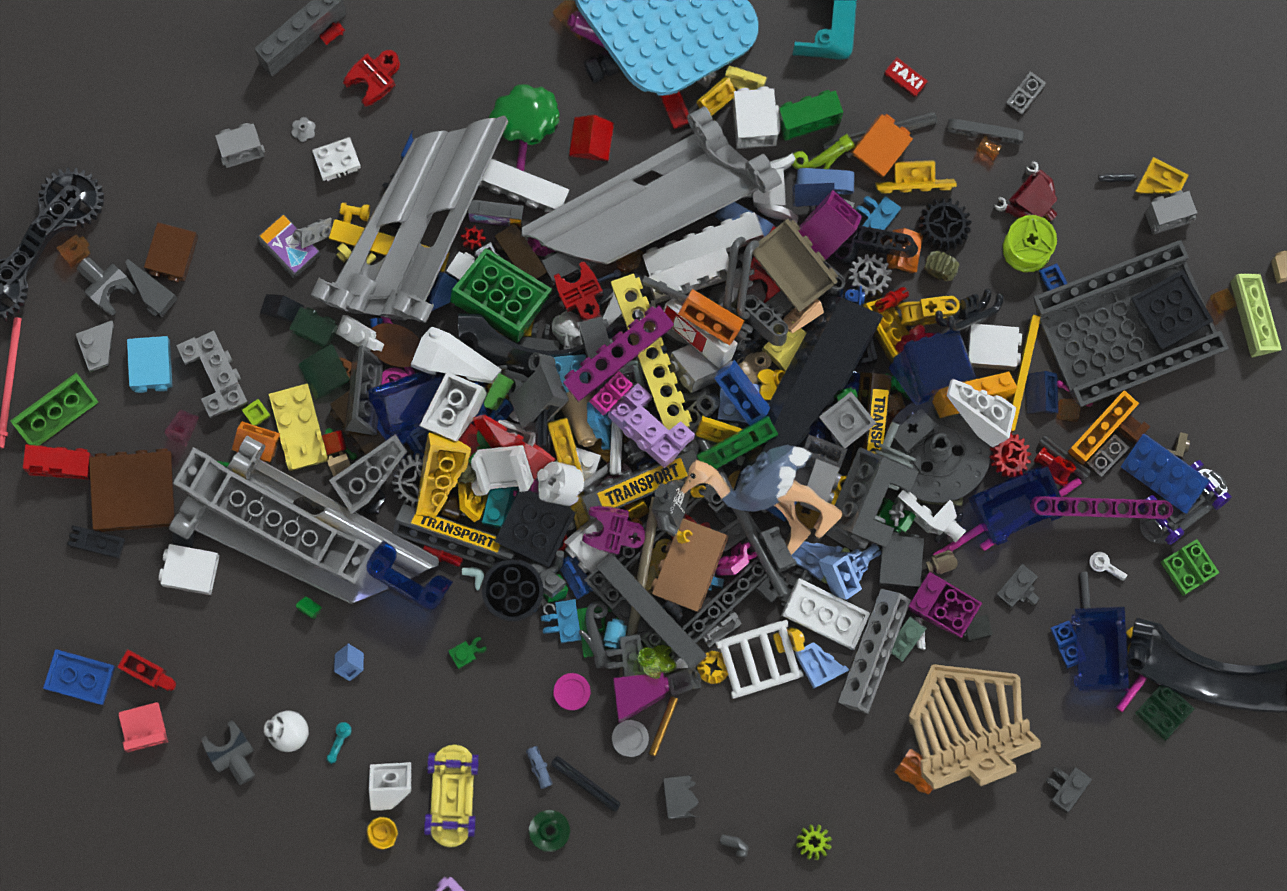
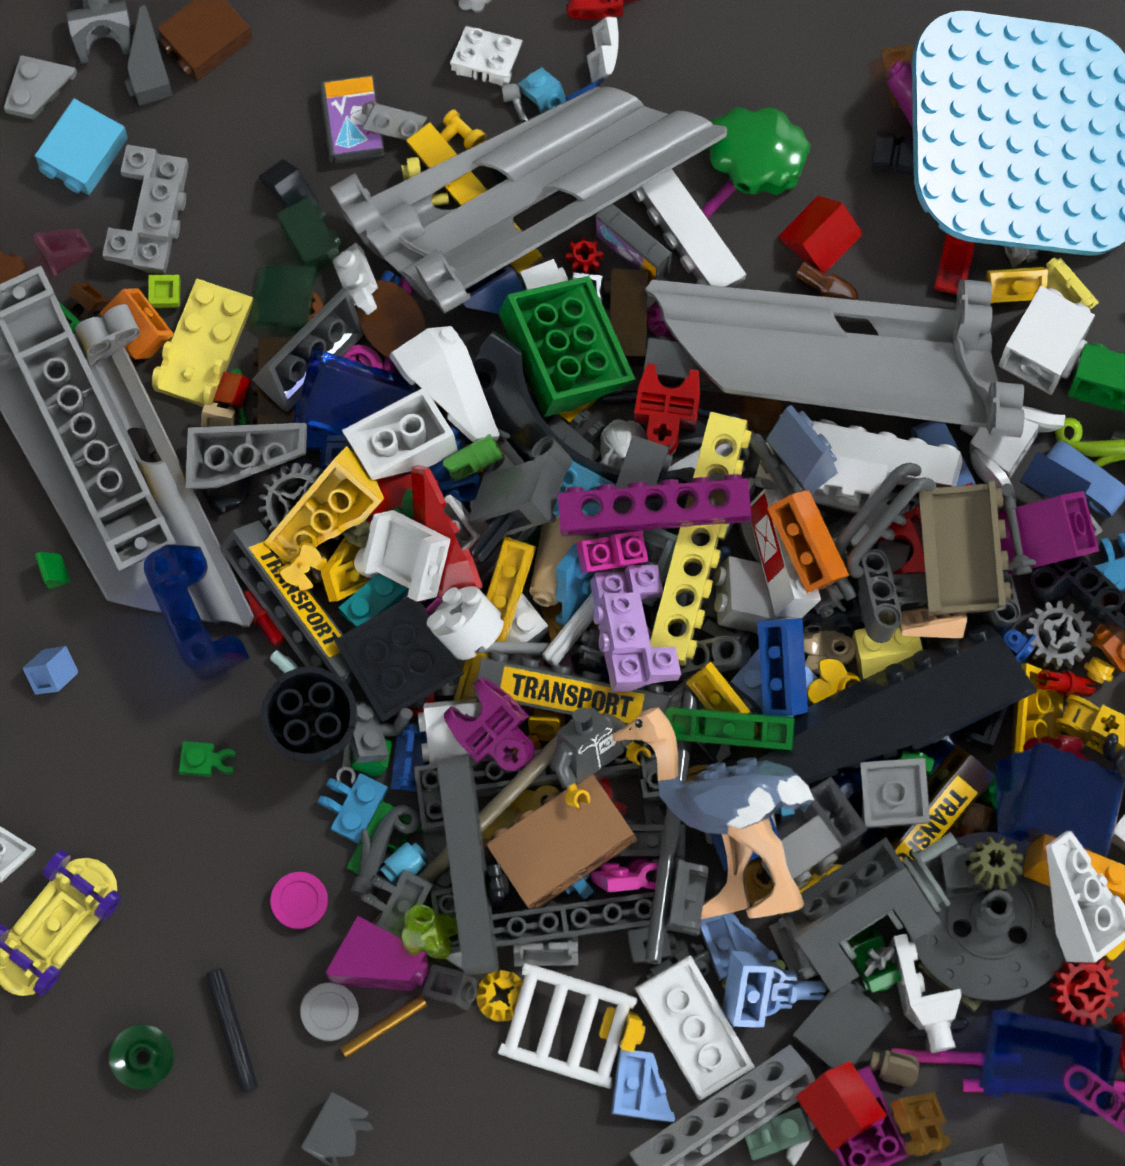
camera: 40 degrees right, 5 degrees down
(217, 444) = (88, 297): none -> reddish brown tile
(366, 171) = (512, 93): none -> light grey hand
(384, 159) = (543, 90): none -> medium azure bracket
(404, 119) = (603, 59): none -> white slope
(445, 519) = (300, 564): none -> yellow piece
(539, 767) = (188, 967): sand blue pin -> none
(617, 165) = (826, 285): none -> reddish brown arm
(673, 270) = (801, 450): none -> sand blue slope
(828, 252) = (1020, 563): none -> dark grey piece
(903, 280) = (1099, 670): none -> yellow plate
(917, 419) = (994, 875): none -> olive gear
(930, 602) = (840, 1105): none -> red slope
(974, 580) = (923, 1119): none -> pearl gold plate

